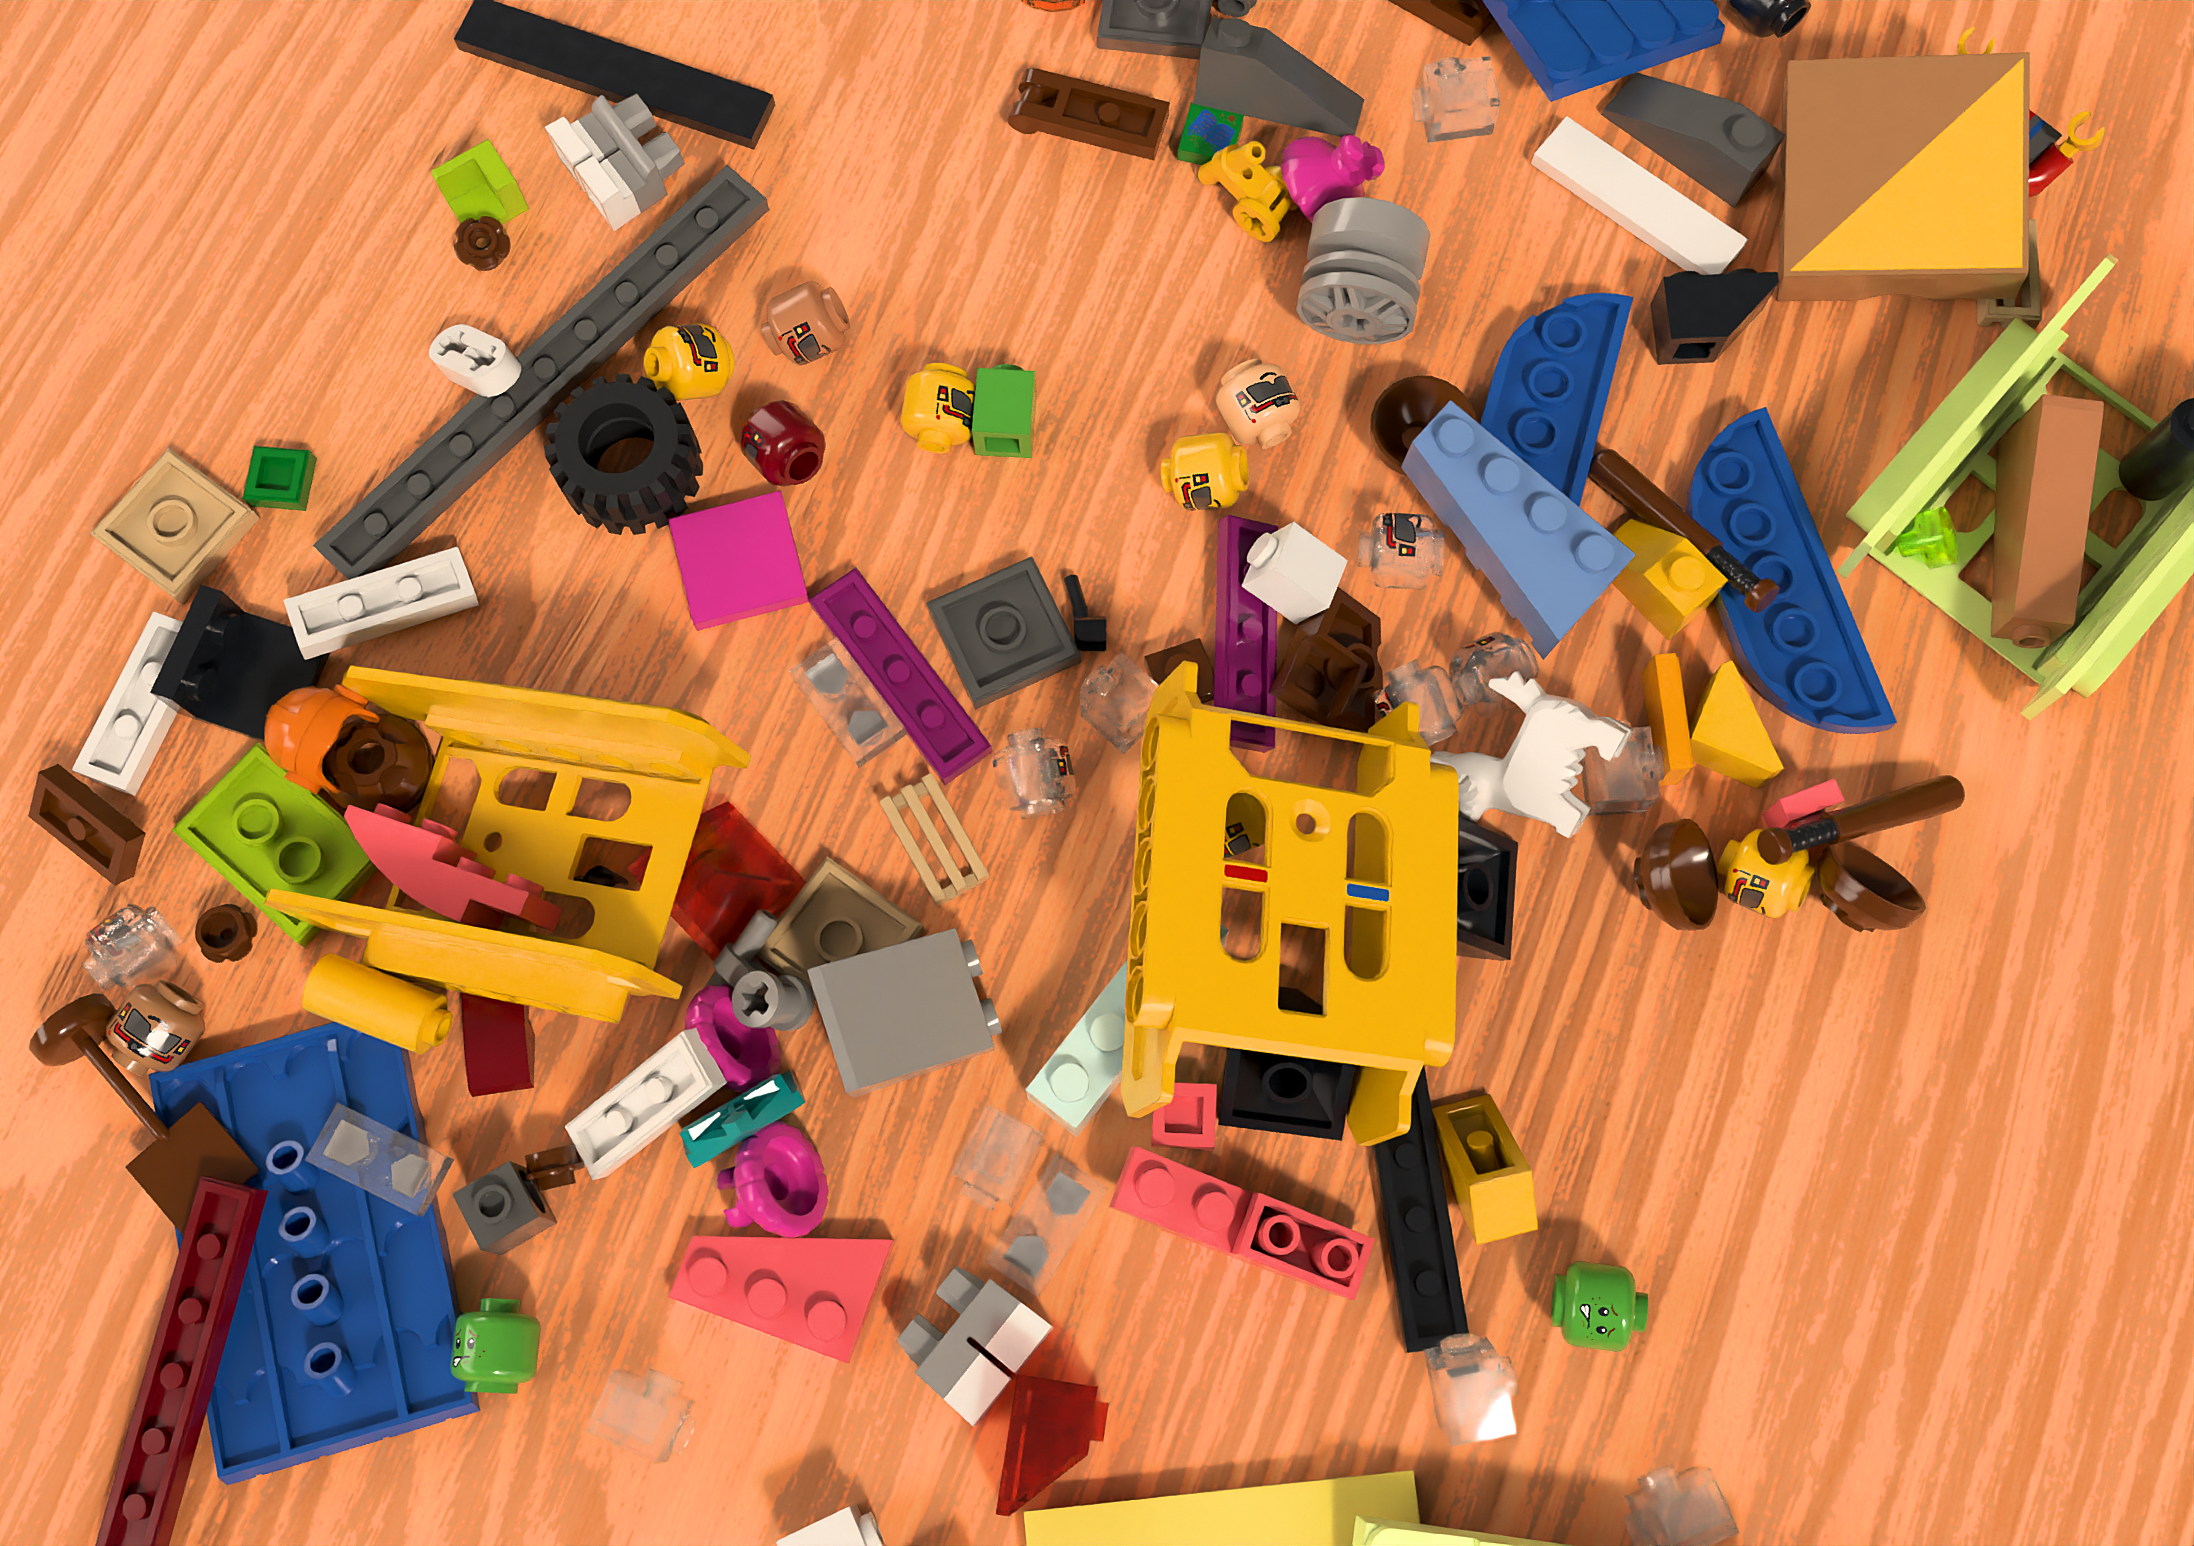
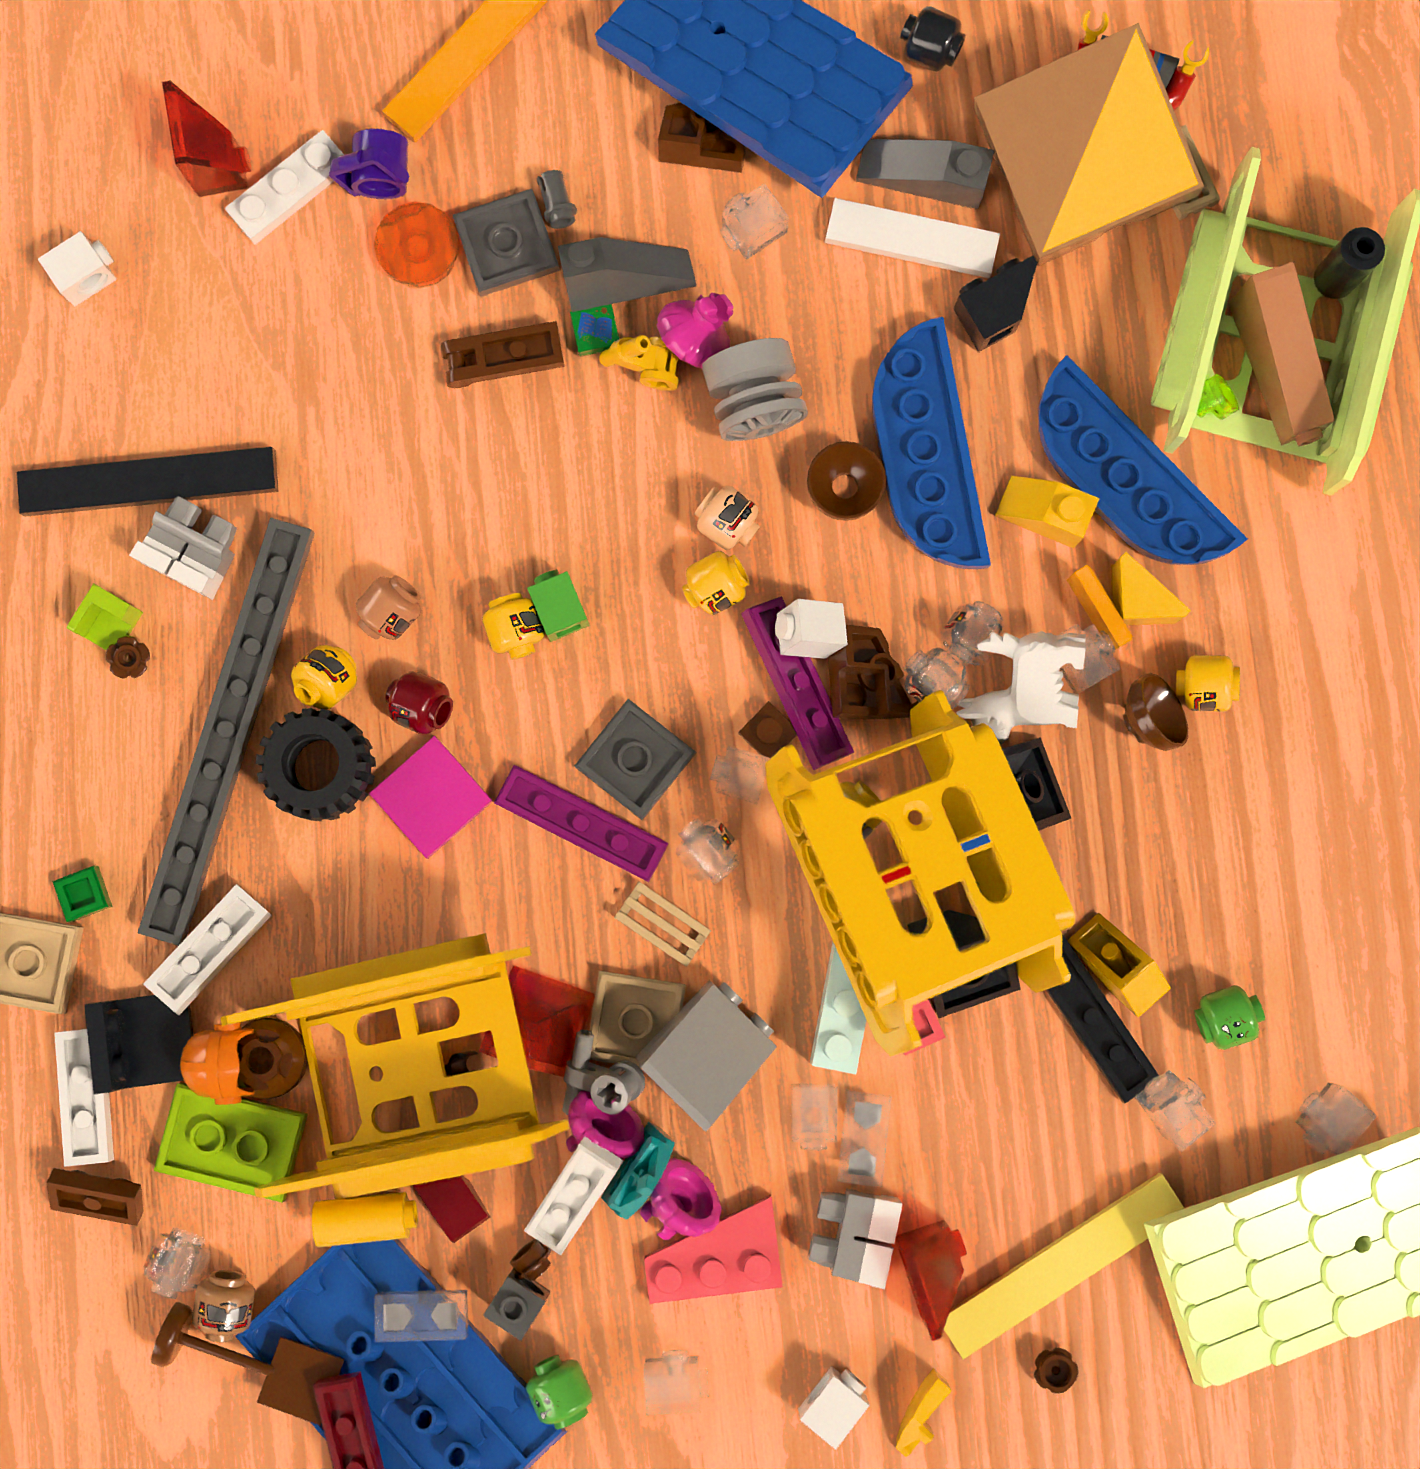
camera: 25 degrees left, 10 degrees up
(210, 933) = (219, 1219): reddish brown plate -> none
(443, 873) = (355, 1117): coral slope -> none
(475, 360) = (175, 740): white beam -> none
(847, 702) = (557, 861): clear piece -> none
(1088, 631) = (691, 732): black hand -> none
(1242, 1223) = (986, 1077): coral slope -> none
(1402, 551) = (874, 576): clear head -> none
(1515, 526) = (955, 533): medium blue wedge -> none
(1662, 512) = (1038, 467): reddish brown piece -> none
(1804, 806) = (1215, 628): coral plate -> none
(1866, 890) = (1277, 662): reddish brown piece -> none
(1867, 817) = (1263, 609): reddish brown piece -> none

